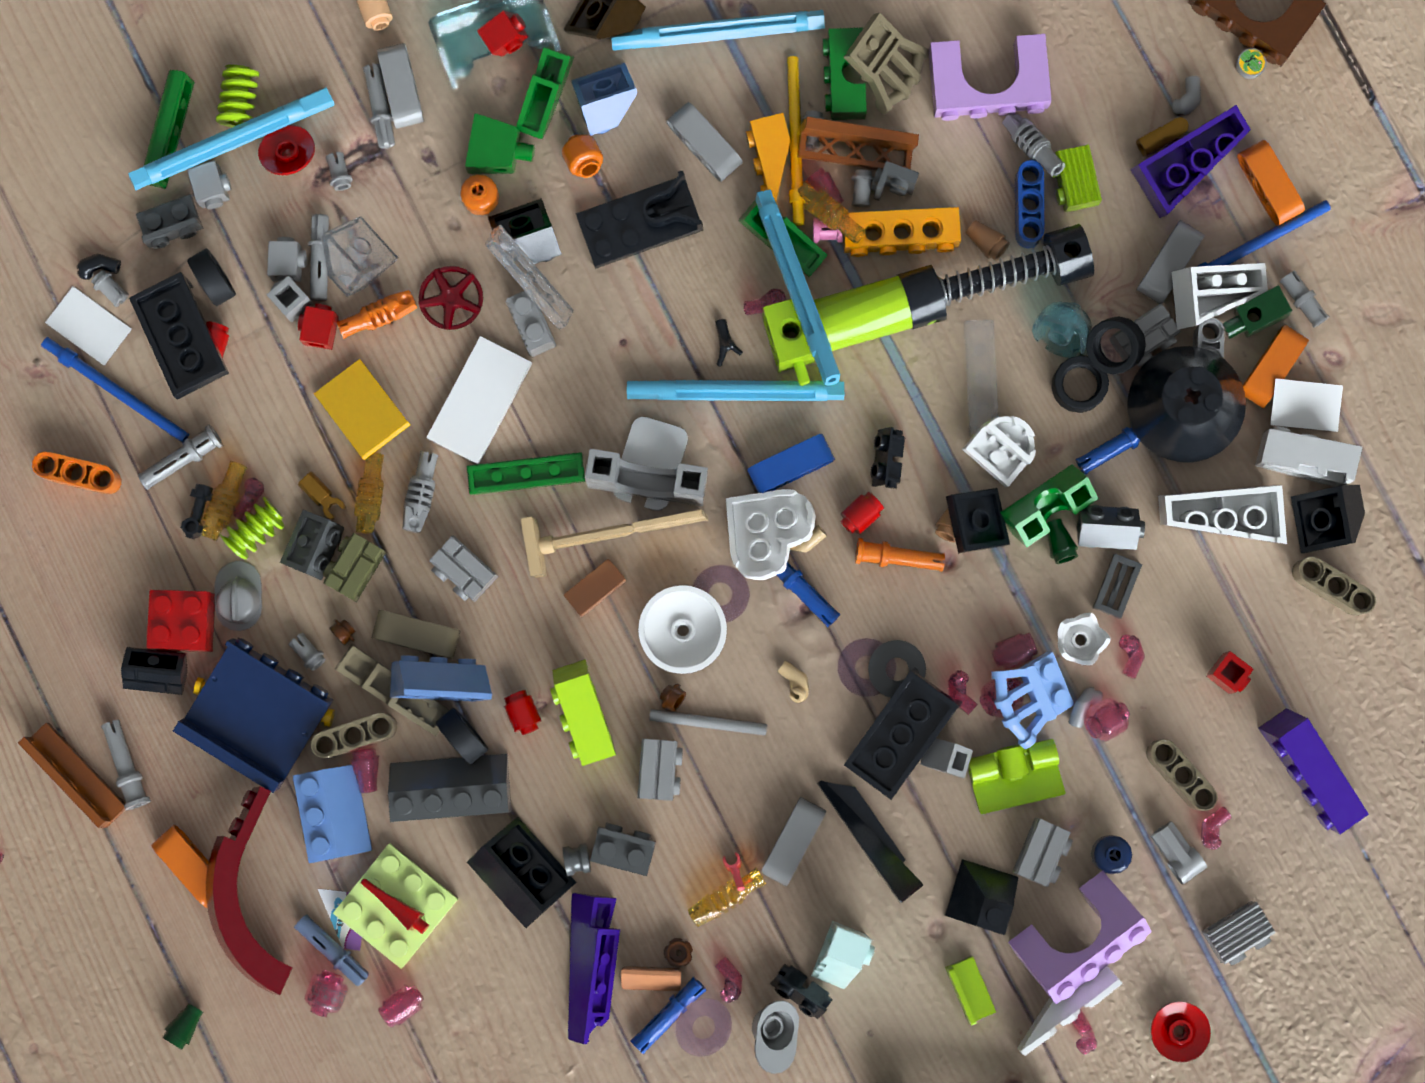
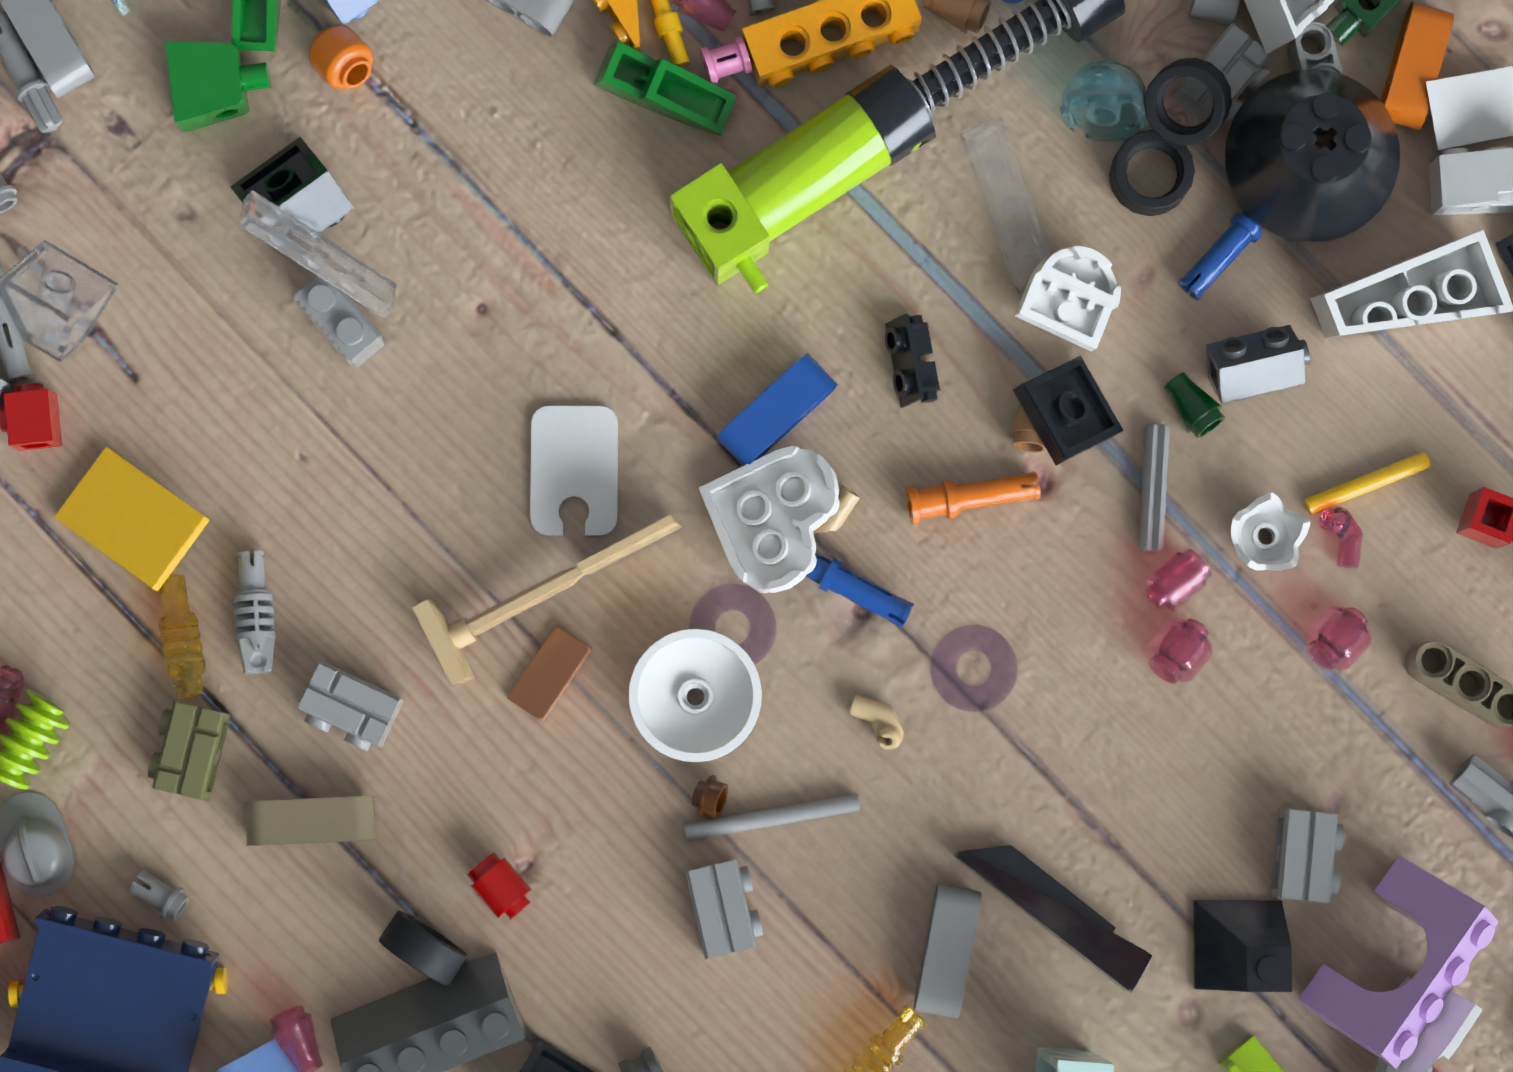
camera: 30 degrees left, 0 degrees up
(312, 544) = (119, 737): dark grey bracket -> none
(320, 494) = (108, 660): pearl gold bar -> none
(340, 740) = (247, 1009): dark tan beam -> none
(343, 631) = (202, 849): reddish brown plate -> none
(377, 680) = (299, 911): dark tan slope -> none
(378, 313) = (114, 373): orange hinge -> none
(439, 680) = (365, 876): medium blue slope -> none
(450, 297) = (212, 318): dark red wheel -> none
(476, 203) = (222, 159): orange head -> none
(479, 400) = (299, 454): white tile -> none
(526, 473) = (399, 539): green tile -> none
(582, 713) = (587, 861): lime wedge -> none
(623, 850) = (706, 1040): dark grey bracket -> none
(639, 221) = (452, 128): black plate -> none
(680, 485) = (528, 502): light grey arch -> none
(726, 341) = (628, 262): black bar -> none
(734, 390) = (664, 329): medium azure piece -> none
(735, 871) = (878, 1020): coral hand -> none
(771, 297) = (660, 198): clear pink arm -> none
(797, 287) = (711, 153): medium azure piece -> none
(830, 212) = (724, 32): clear yellow hinge -> none
(861, 513) = (899, 450): red brick -> none
(883, 655) = (1046, 652): dark grey piece -> none
(902, 734) = (1056, 749): black plate -> none
(947, 758) = (1128, 762): light grey brick -> none
(957, 691) = (1114, 662): clear pink arm -> none
(1016, 776) = (1234, 758): lime panel -> none
(1018, 587) = (1154, 487): none -> light grey axle
(1046, 691) = (1241, 625): light blue plate -> none
(1064, 491) = (1179, 330): green arch -> none
(1082, 705) = (1296, 628): light grey arm -> none
(1101, 856) = (1390, 829): dark blue head -> none
(1127, 592) = (1290, 480): dark grey tile -> none
(1158, 626) = (1367, 483): none -> yellow bar

